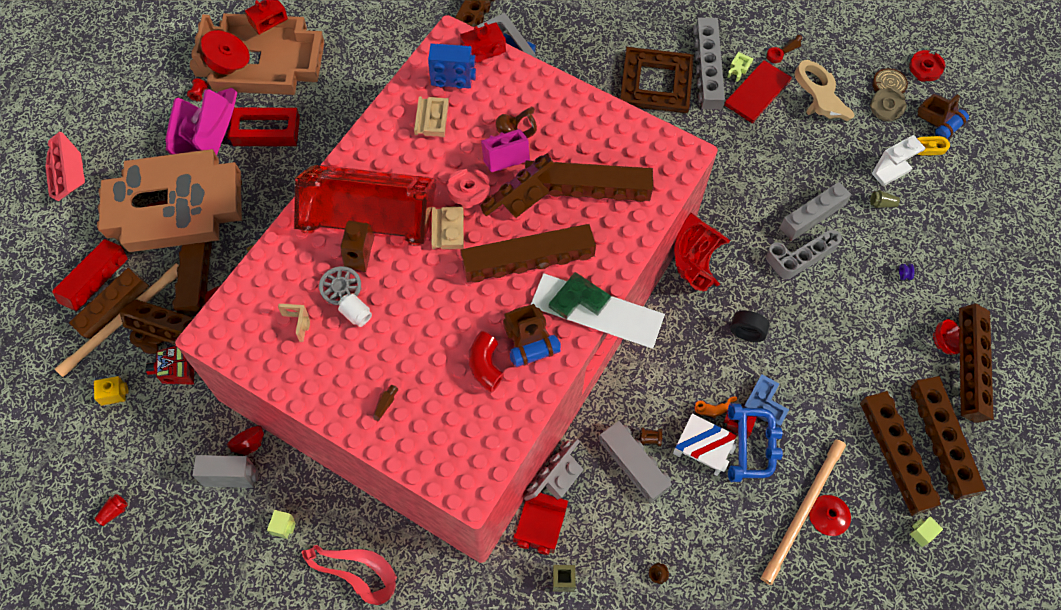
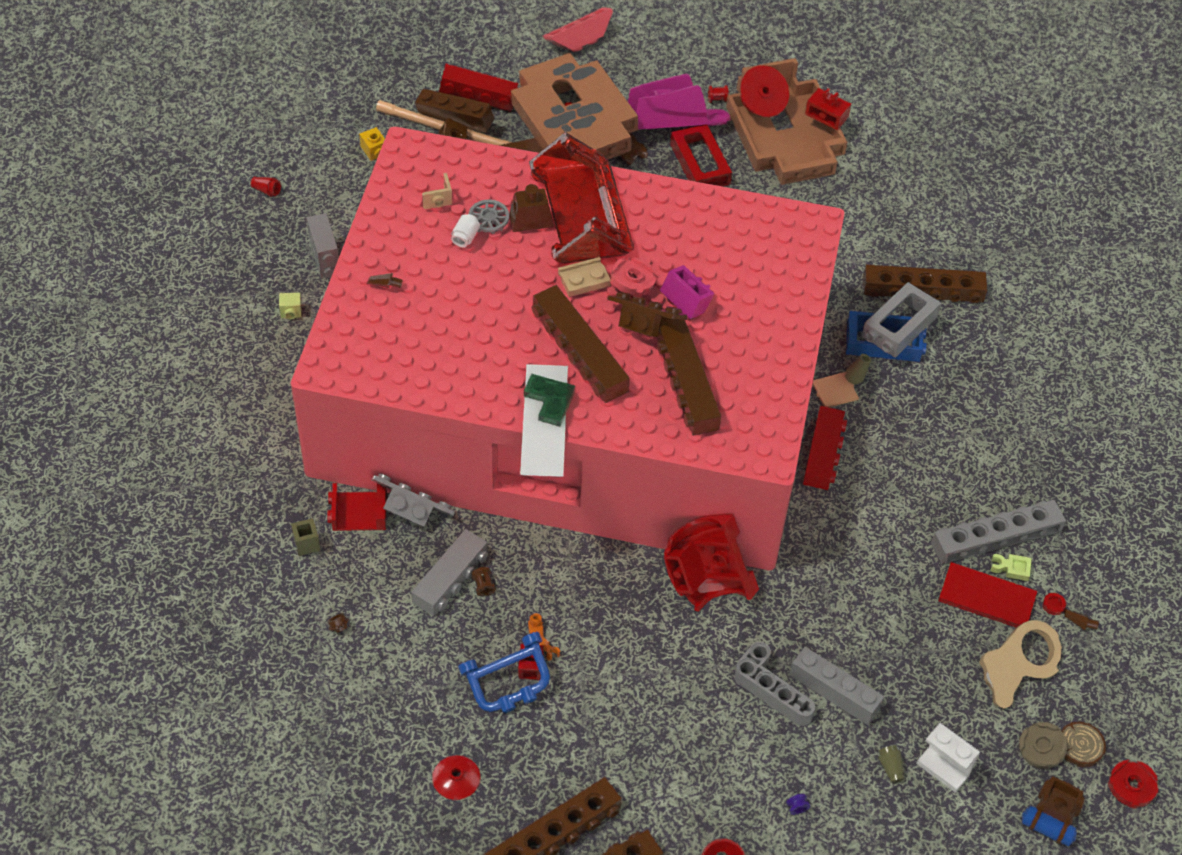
camera: 70 degrees right, 10 degrees down
(371, 559) = (253, 380): coral animal -> none
(431, 116) = (704, 228): tan plate -> none
(451, 65) = (764, 220): blue brick -> none
(481, 361) = (448, 337): red cylinder -> none
(484, 41) = (814, 242): red brick -> none
(507, 123) = (727, 293): reddish brown piece -> none
(529, 336) = (489, 363): reddish brown piece -> none
(680, 62) = (929, 514): reddish brown plate -> none
(706, 443) = (491, 631): panel -> none
(749, 326) = (648, 643): black tyre -> none
(762, 396) = (565, 678): medium blue plate -> none
(774, 565) = (380, 730): light nougat piece -> none
(931, 144) = (1005, 807): yellow plate -> none

